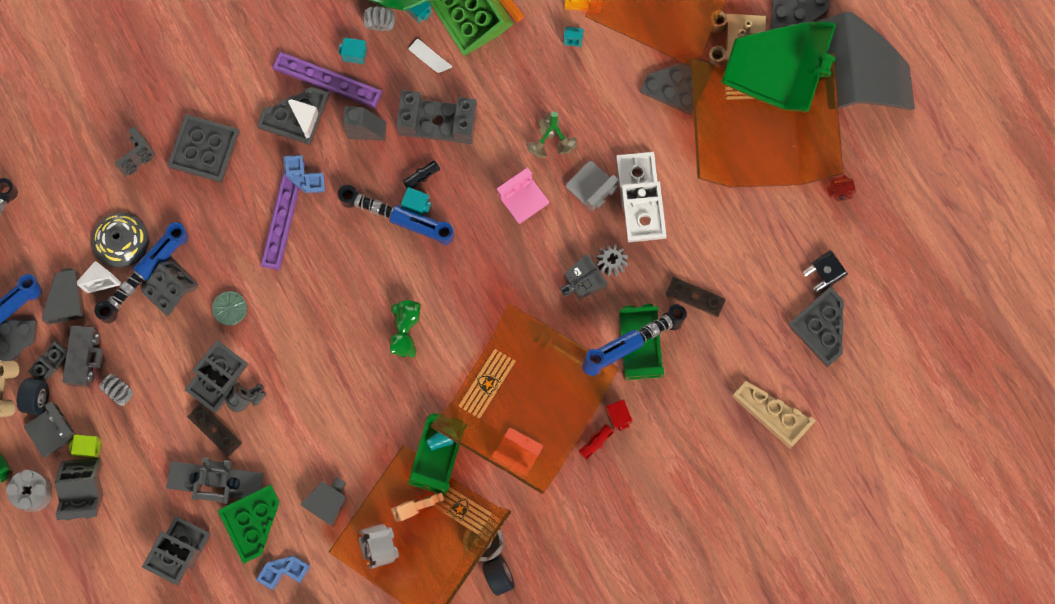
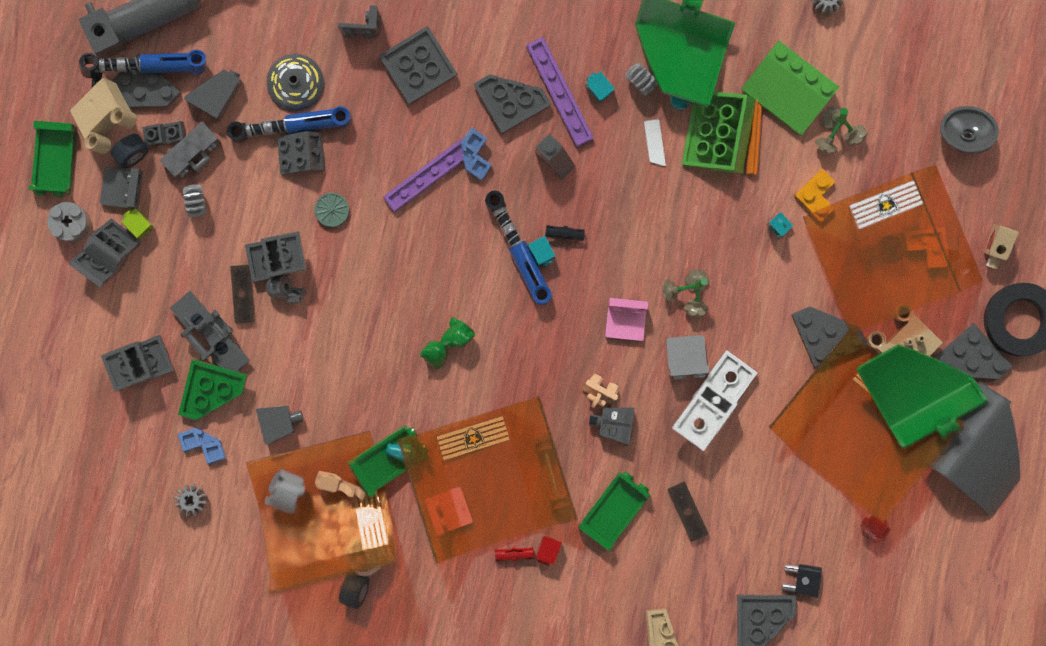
camera: 40 degrees right, 10 degrees up
(97, 279) = (253, 100): white slope -> none
(305, 115) = (515, 109): white slope -> none
(417, 117) = (601, 184): dark grey plate -> none
(551, 267) = (599, 394): none -> light nougat hips
(604, 262) = (648, 421): light grey gear -> none
(632, 340) = (606, 507): piece -> none

